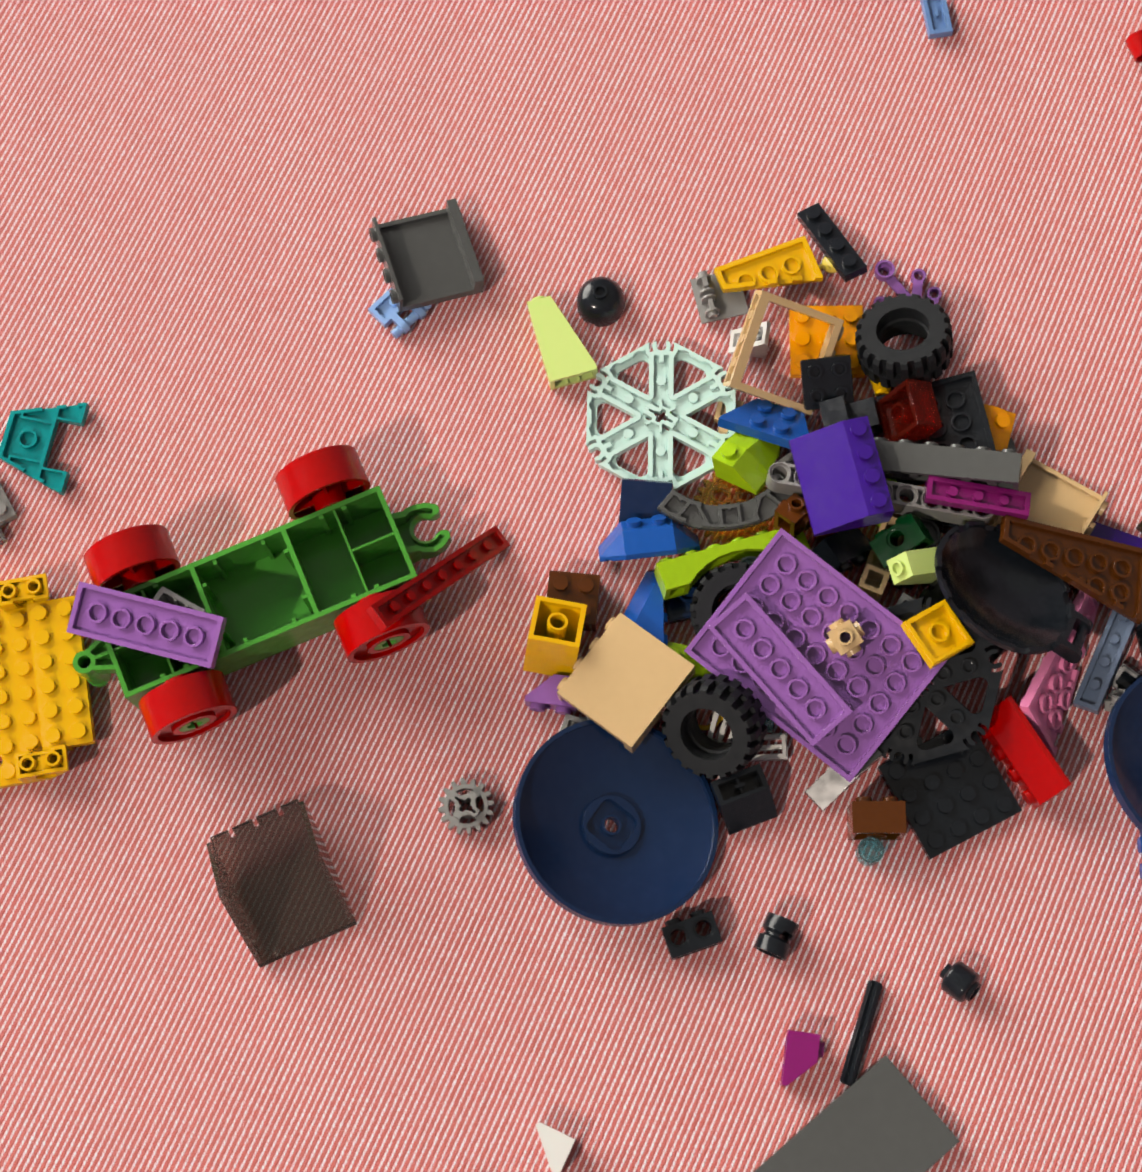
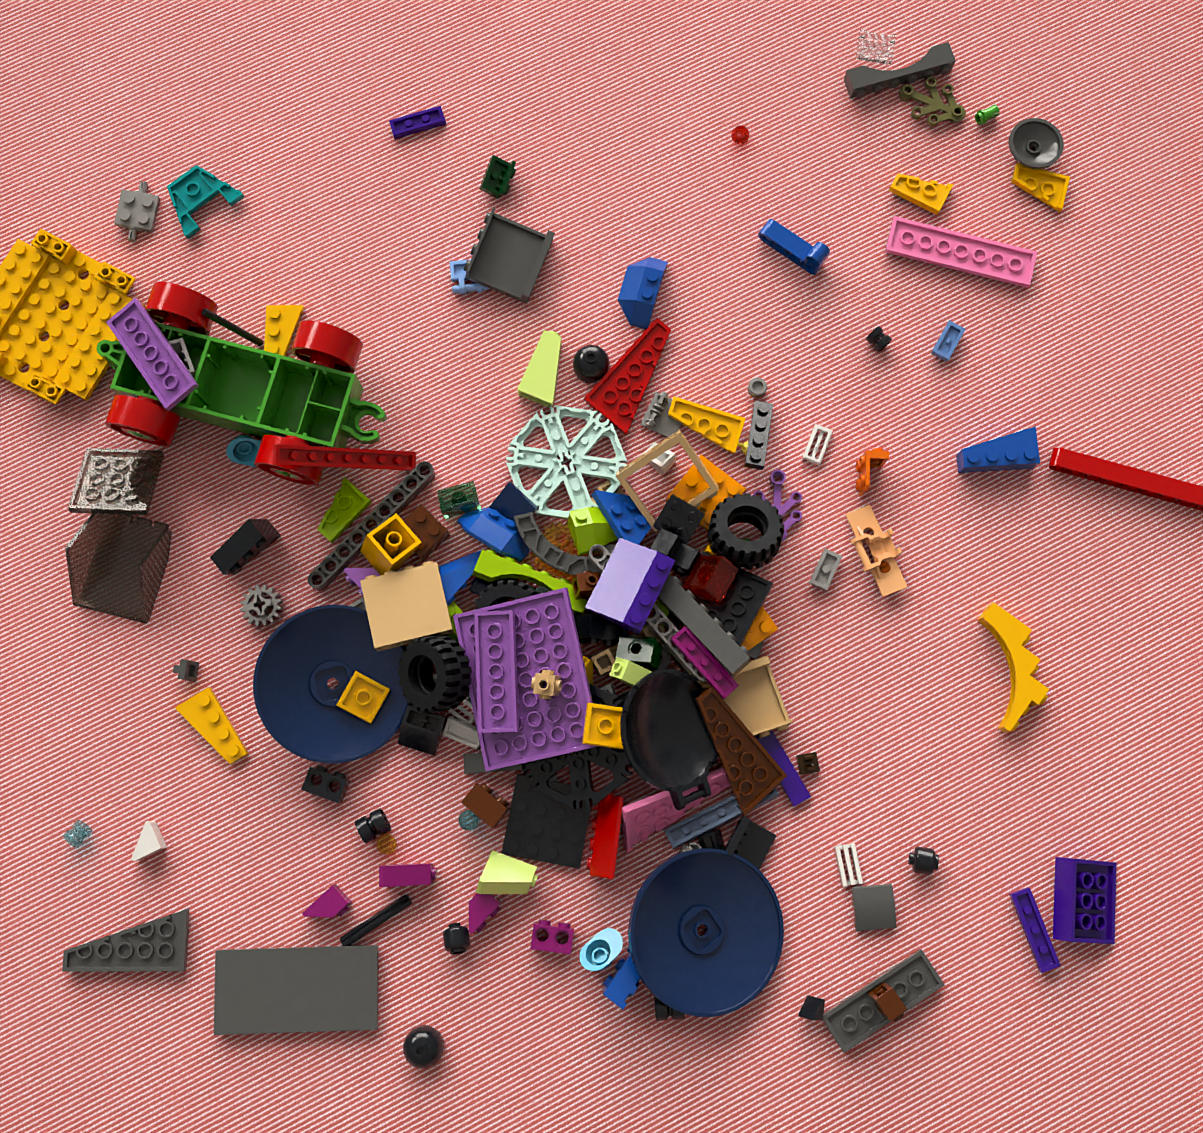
camera: 30 degrees right, 5 degrees up
(191, 541) = (232, 327): none -> black bar
(203, 798) = (116, 481): none -> clear smoke plate
(212, 196) = (417, 122): none -> dark purple tile
(241, 507) = (280, 326): none -> yellow wing
(318, 659) = (243, 450): none -> medium azure piece
(346, 188) = (497, 177): none -> dark green bracket
(397, 760) = (244, 545): none -> black wedge
(442, 936) = (187, 670): none -> dark grey tile
(470, 642) = (345, 509): none -> lime wing
(514, 622) = (362, 528): none -> dark grey beam
(514, 970) = (211, 721): none -> yellow wing
(581, 538) = (458, 499): none -> clear green slope
(591, 191) = (641, 290): none -> blue wedge
(653, 294) = (624, 385): none -> red wing
(654, 814) = (363, 697): none -> yellow tile
(708, 36) = (793, 247): none -> blue beam
(787, 199) = (757, 387): none -> light grey tile
(788, 768) = (462, 732): none -> white tile
(805, 946) = (386, 844): none -> clear yellow plate
(855, 956) = (406, 874): none -> magenta slope
(862, 62) = (878, 339): none -> black wheel
(885, 211) = (812, 459): none -> white tile
(957, 874) = (506, 876): none -> yellowish green slope
(958, 930) = (480, 908): none -> magenta slope
(964, 195) = (871, 458): none -> orange bracket
(1008, 323) = (825, 569): none -> light grey plate
(1020, 1120) = (423, 1046): none -> black cylinder
(1044, 260) = (885, 569): none -> light nougat piece
(1057, 904) = (551, 944): none -> magenta brick
(1084, 79) = (1003, 453): none -> blue wedge
(1116, 870) = (601, 950): none -> piece

